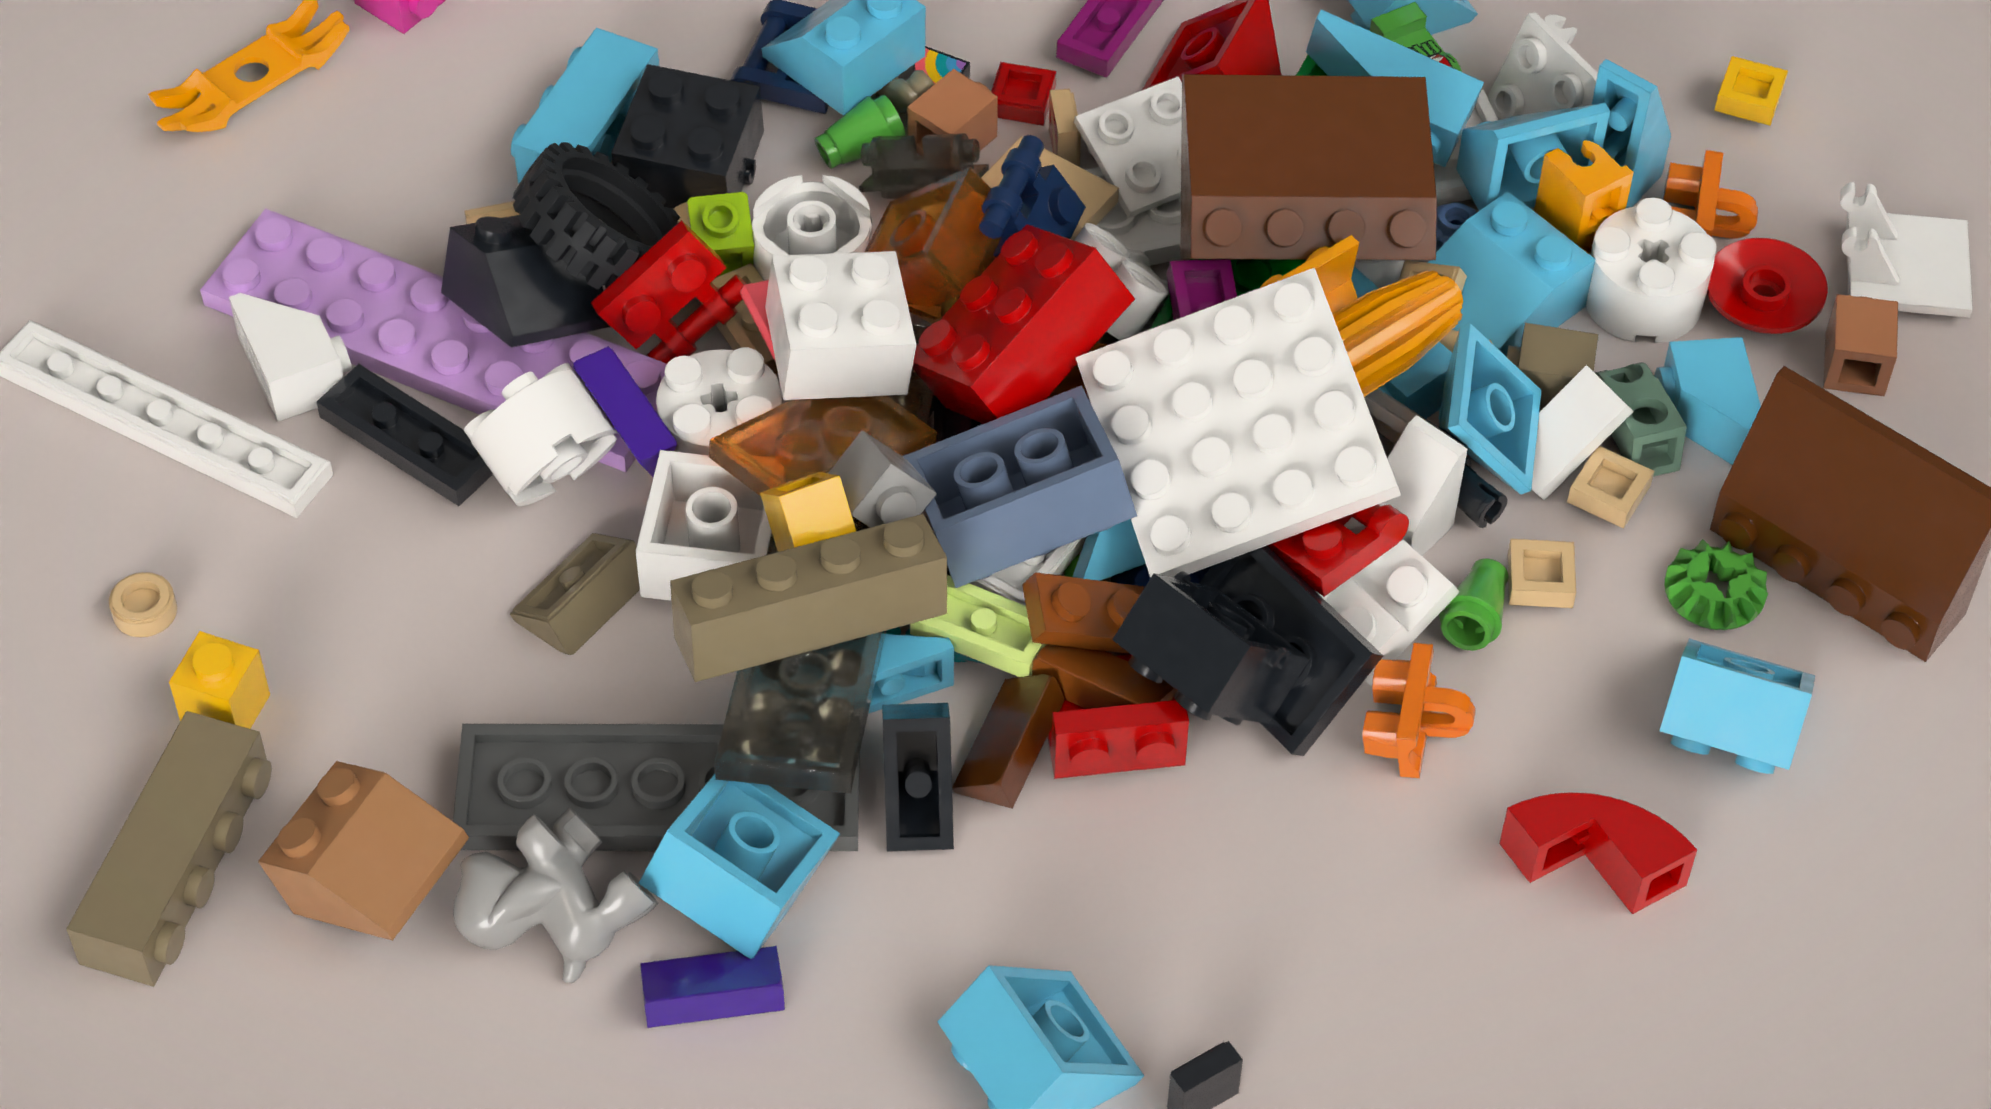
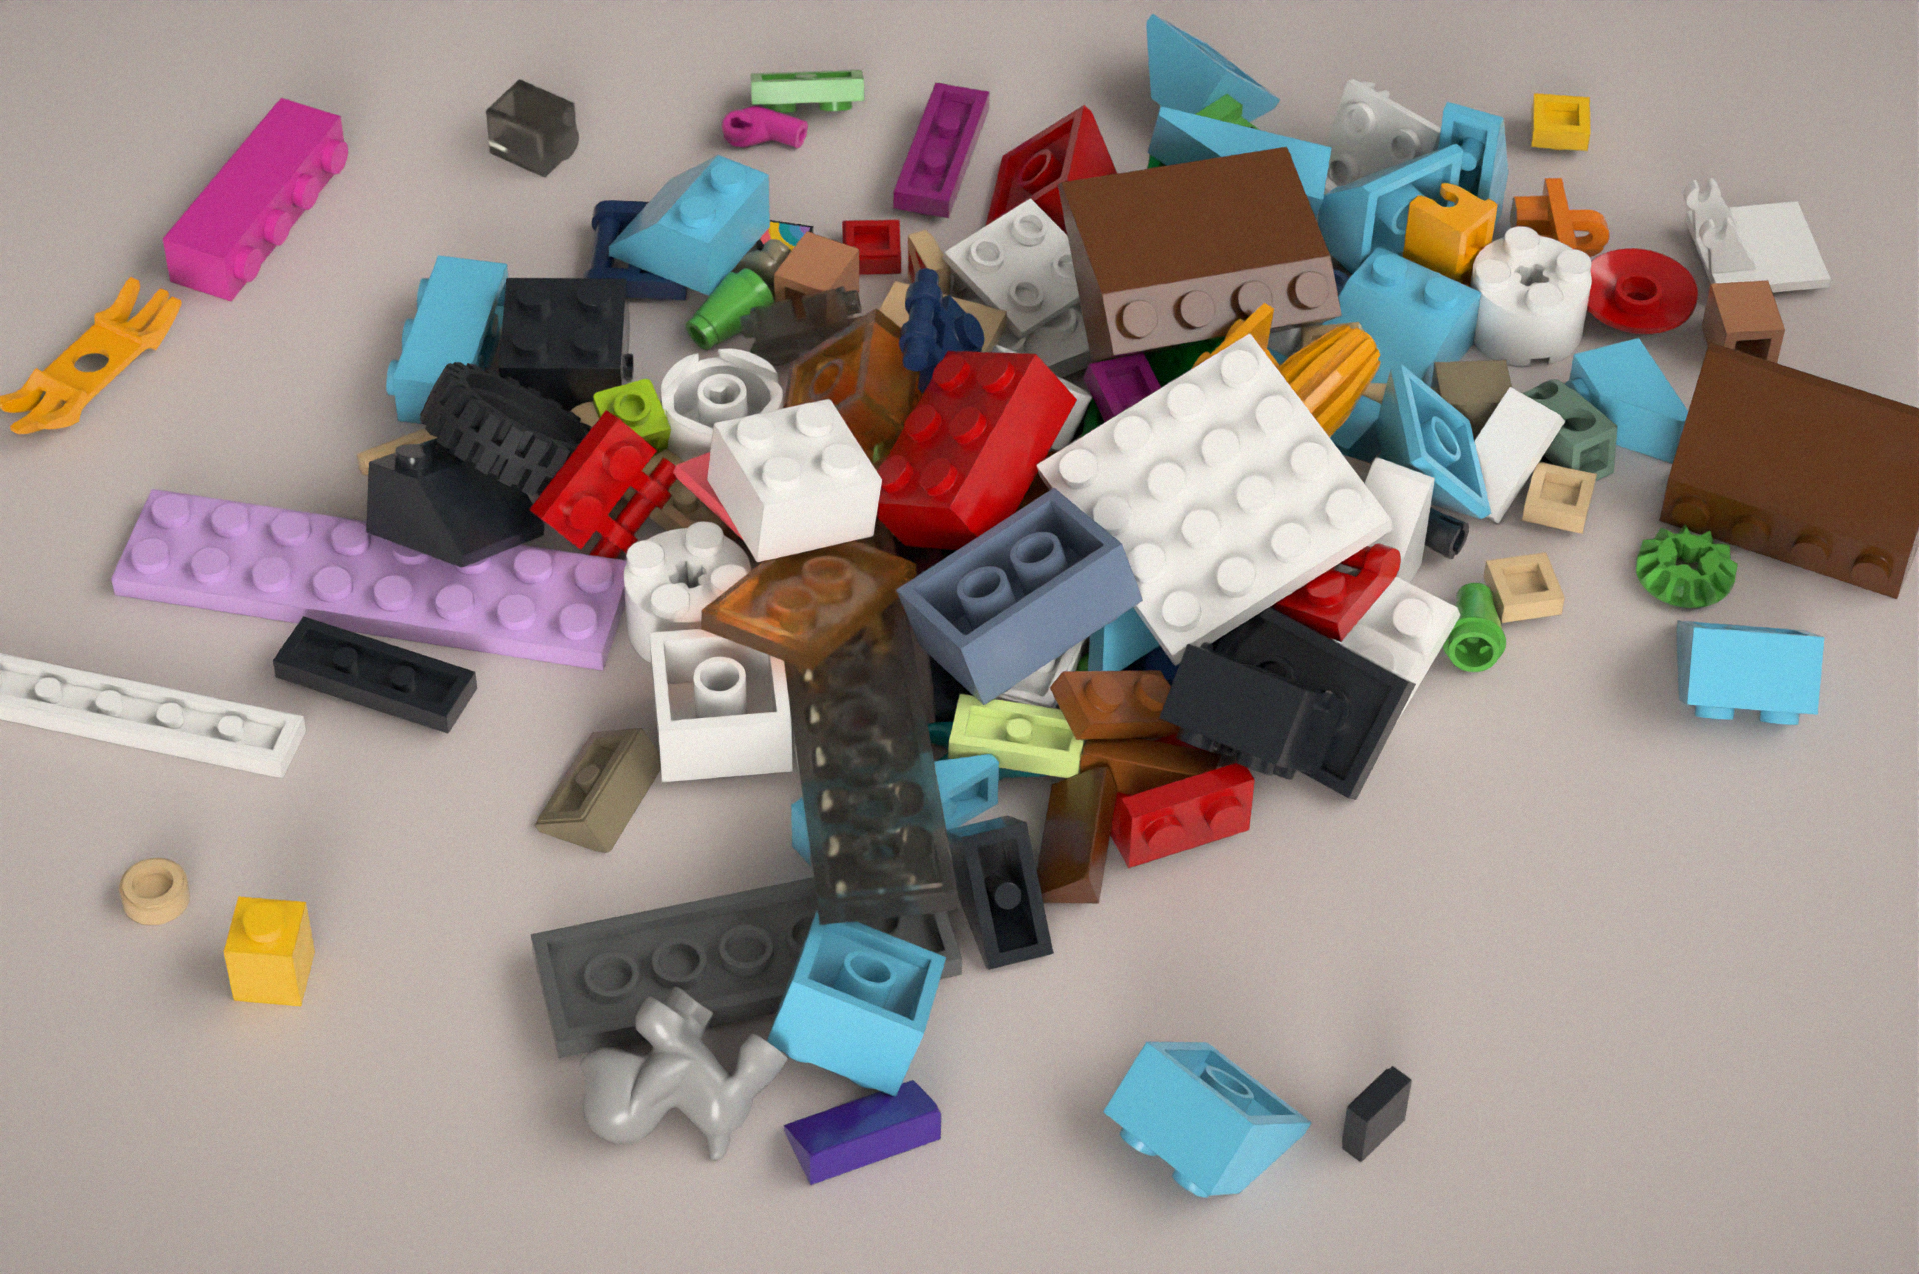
camera: 15 degrees left, 5 degrees down
(170, 849) = (271, 1117): dark tan brick -> none
(288, 353) = (225, 621): white slope -> none
(361, 852) = (474, 1075): medium nougat slope -> none
(542, 433) = (522, 642): white brick -> none
(625, 406) = (600, 603): dark purple slope -> none
(807, 510) = (836, 665): yellow brick -> none
(809, 597) = (858, 734): dark tan brick -> none
(880, 483) = (889, 619): light grey brick -> none
(1413, 687) = (1448, 757): orange hips -> none
(1626, 844) = (1686, 811): red brick -> none

